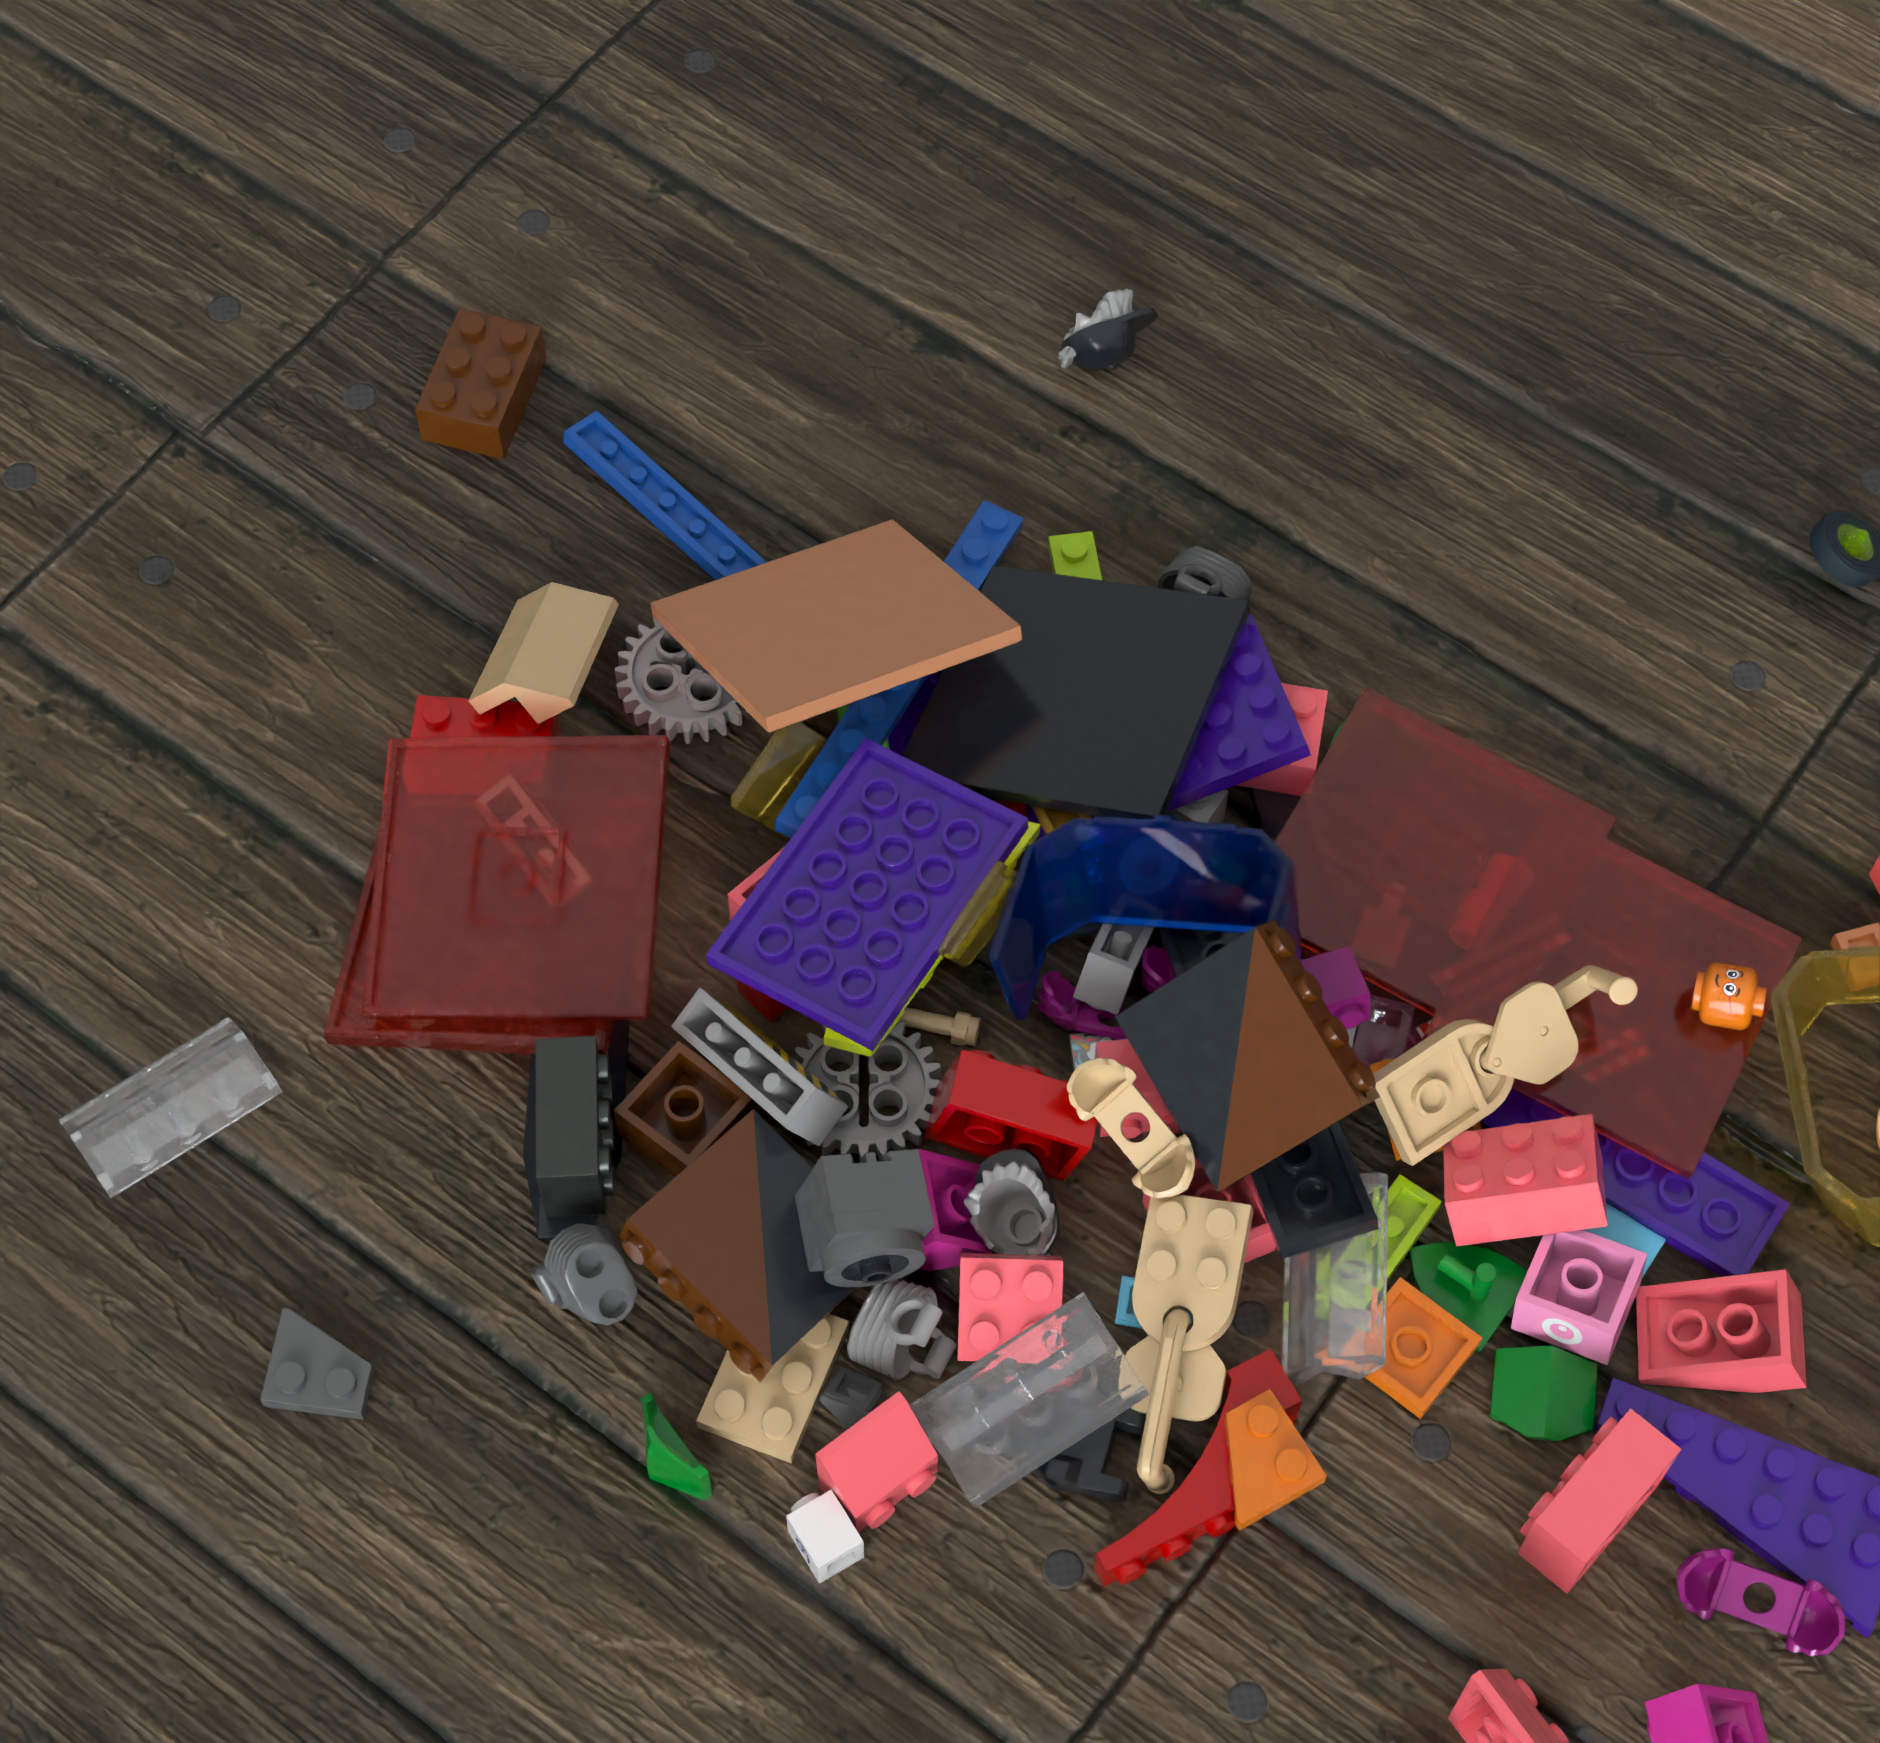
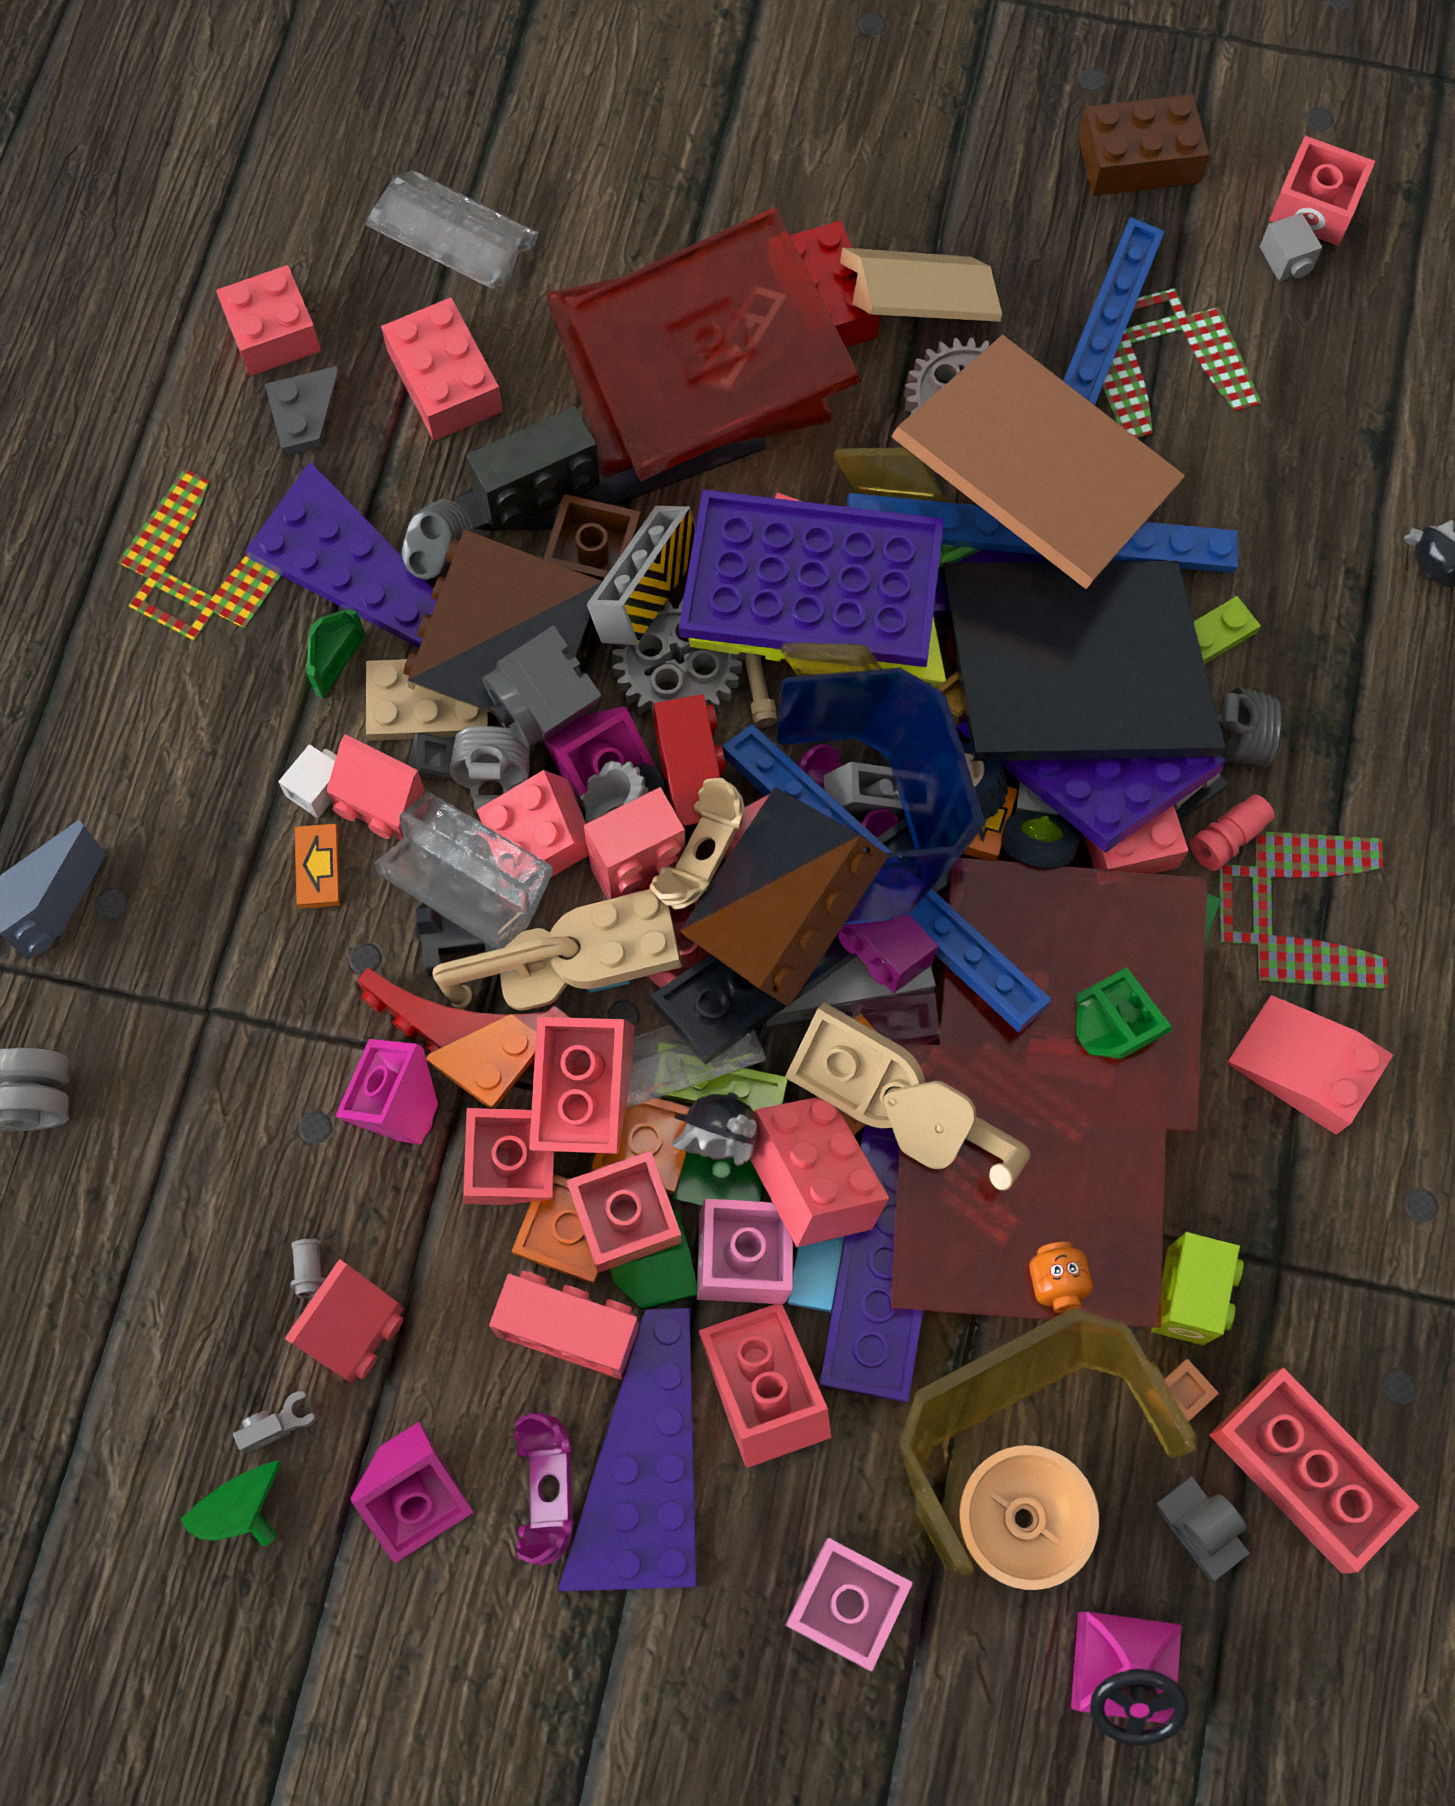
camera: 65 degrees right, 10 degrees up
(179, 1359) = (268, 320): none -> coral brick
(358, 1188) = (442, 369): none -> coral brick
(403, 1608) = (159, 542): none -> piece
(537, 1403) = (339, 555): none -> dark purple wing
(634, 253) = (1324, 187): none -> coral brick
(680, 311) = (1290, 247): none -> light grey brick
(751, 433) = (1210, 342): none -> piece
(929, 1576) = (317, 866): none -> orange tile
(1094, 1204) = (634, 844): none -> coral brick
(1246, 1592) = (391, 1092): none -> dark pink slope
(1259, 806) = (1040, 839): none -> black wheel
(1304, 652) = (1234, 829): none -> coral axle
(1349, 1364) = (580, 1084): none -> coral slope
(1362, 926) = (960, 944): none -> blue plate
(1380, 1491) = (499, 1161): none -> coral slope
(1447, 1247) = (719, 1128): none -> hair
(1455, 666) = (1295, 958): none -> piece
(1477, 1464) = (555, 1237): none -> orange plate
(1482, 827) = (1118, 1017): none -> green slope
(1500, 1385) = (624, 1211): none -> coral brick
(1576, 696) = (1310, 1062): none -> coral slope
(1778, 882) = (1198, 1288): none -> lime brick

